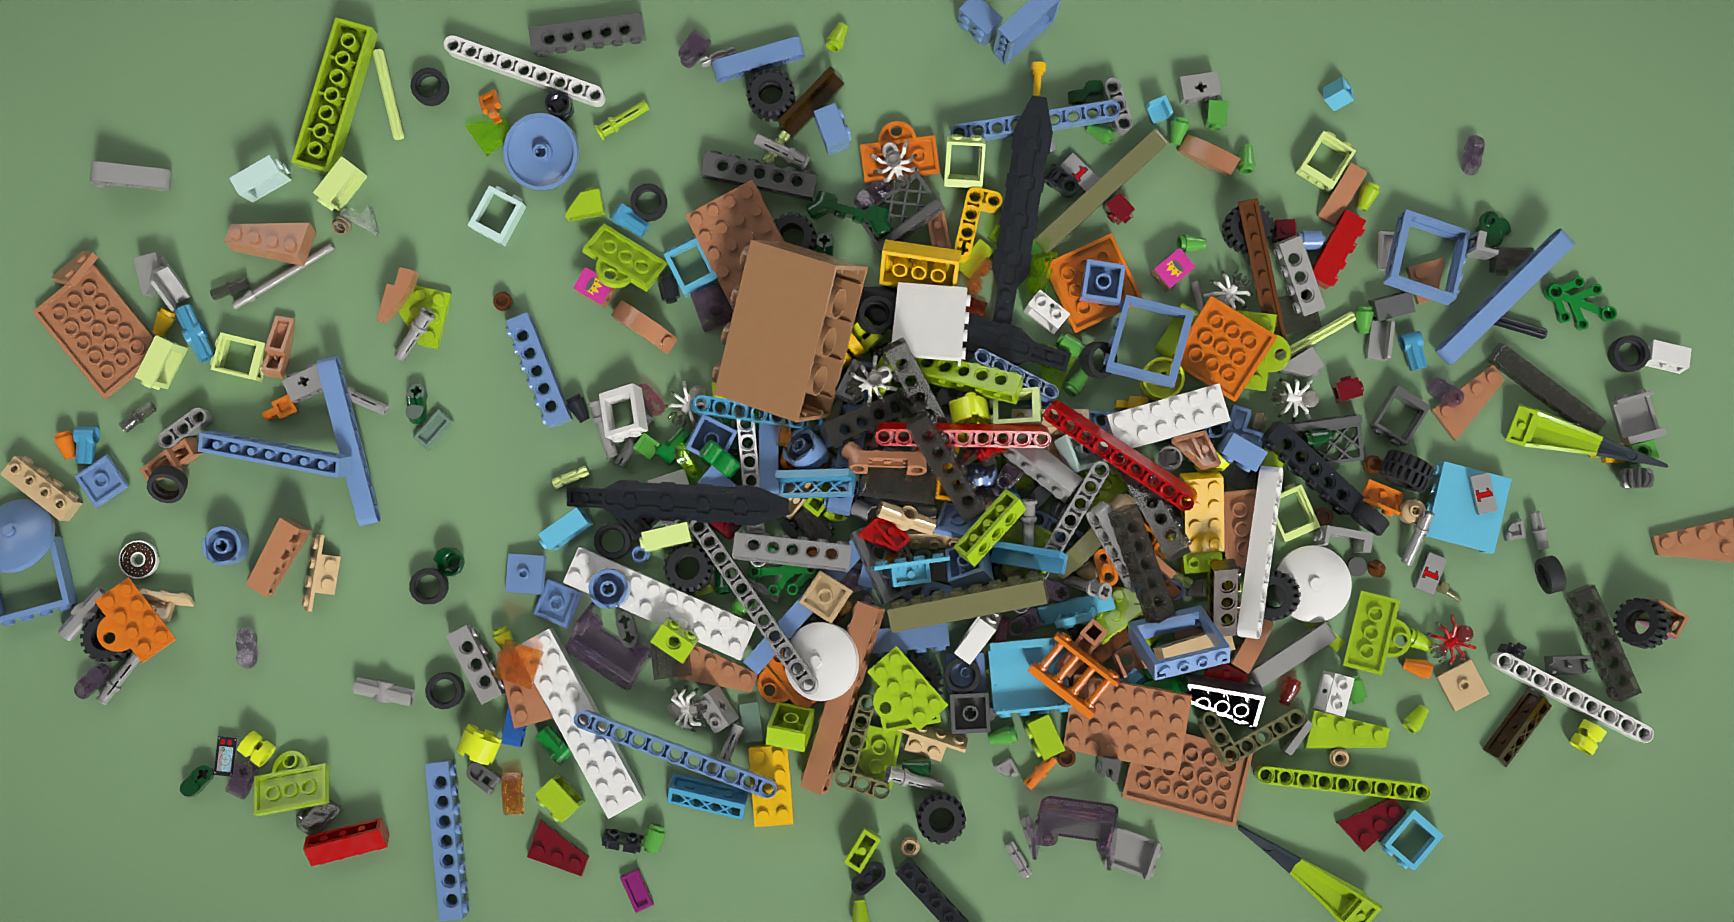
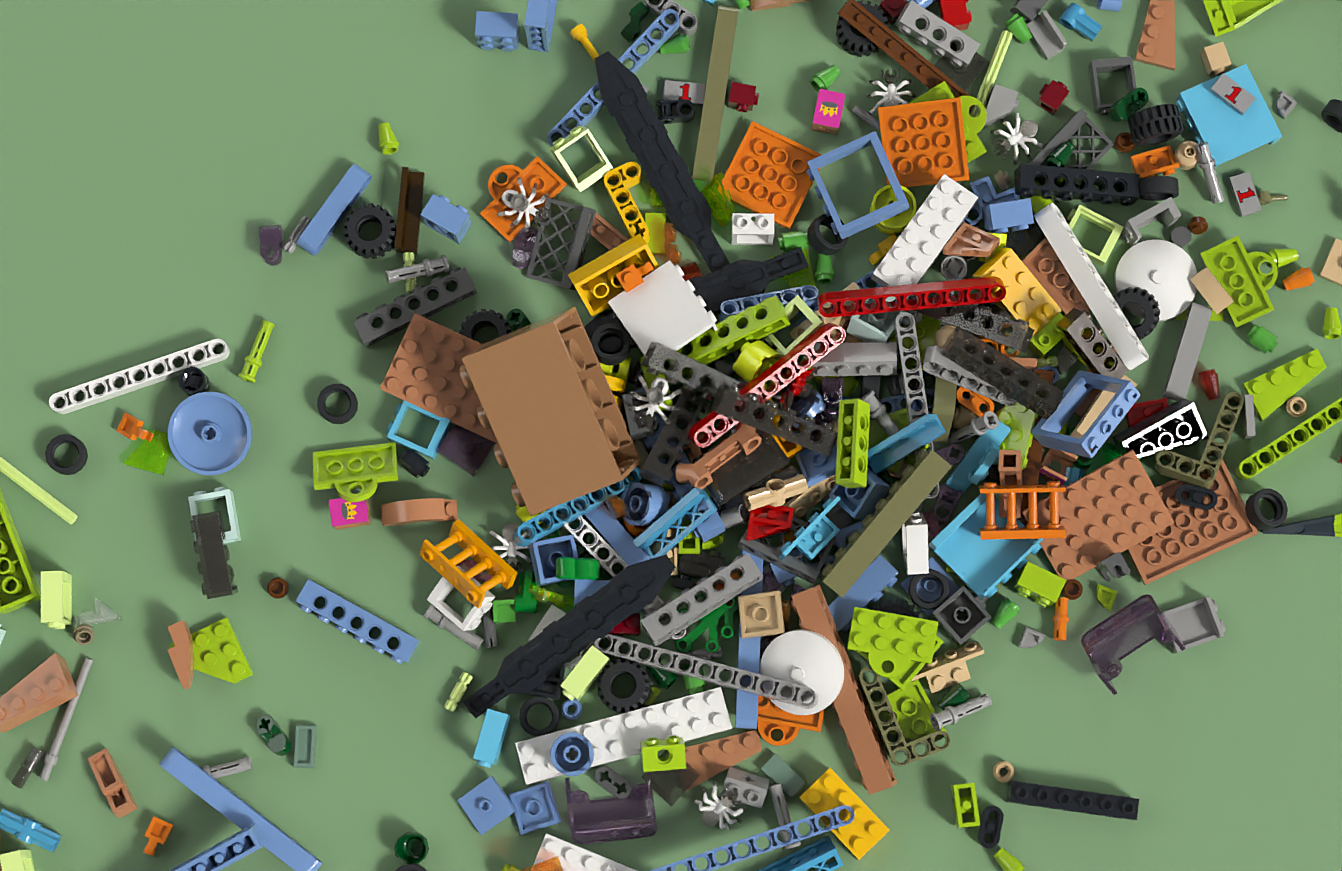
camera: 40 degrees left, 5 degrees down
(222, 346) = (105, 810): yellowish green window -> none
(295, 384) = (160, 806): light grey brick -> none
(418, 327) = (223, 667): light grey pin -> none
(471, 242) = (213, 555): none -> clear smoke wedge
(559, 31) = (157, 304): dark grey brick -> none
(578, 407) = (417, 626): black cone -> none
(586, 205) = (286, 448): lime slope -> none
(626, 218) = (326, 432): dark azure piece -> none
(663, 388) = (480, 552): none -> light orange fence
(790, 726) = (820, 749): lime brick -> none
(827, 203) = (543, 262): dark green plate -> none
(929, 277) = (631, 277): none -> orange plate
(941, 835) = (1028, 722): black tyre -> none
(1018, 860) = (1103, 708): light grey axle -> none
(1028, 829) = (1093, 678): light grey axle -> none
(1086, 782) = (1105, 596): none -> lime tile
(1102, 282) = (778, 168): medium blue brick -> none
(1113, 471) = (917, 317): none -> light grey tile
(1169, 340) = (872, 170): lime beam -> none
(1210, 764) = (1195, 497): none -> black plate
(1244, 808) = (1278, 504): none -> black tyre
(1250, 648) = (1149, 374): nougat slope -> none
(1323, 516) = (1119, 216): reddish brown plate -> none
(1337, 693) = (1250, 352): white window -> none
(1347, 624) = (1211, 290): none -> tan slope
(1389, 440) = (1122, 110): none -> dark green piece
(1445, 392) = (1134, 36): clear purple piece -> none
(1452, 639) = (1307, 234): animal -> none
(1491, 457) = (1215, 59): none -> tan brick
(1539, 530) = (1303, 88): light grey axle -> none

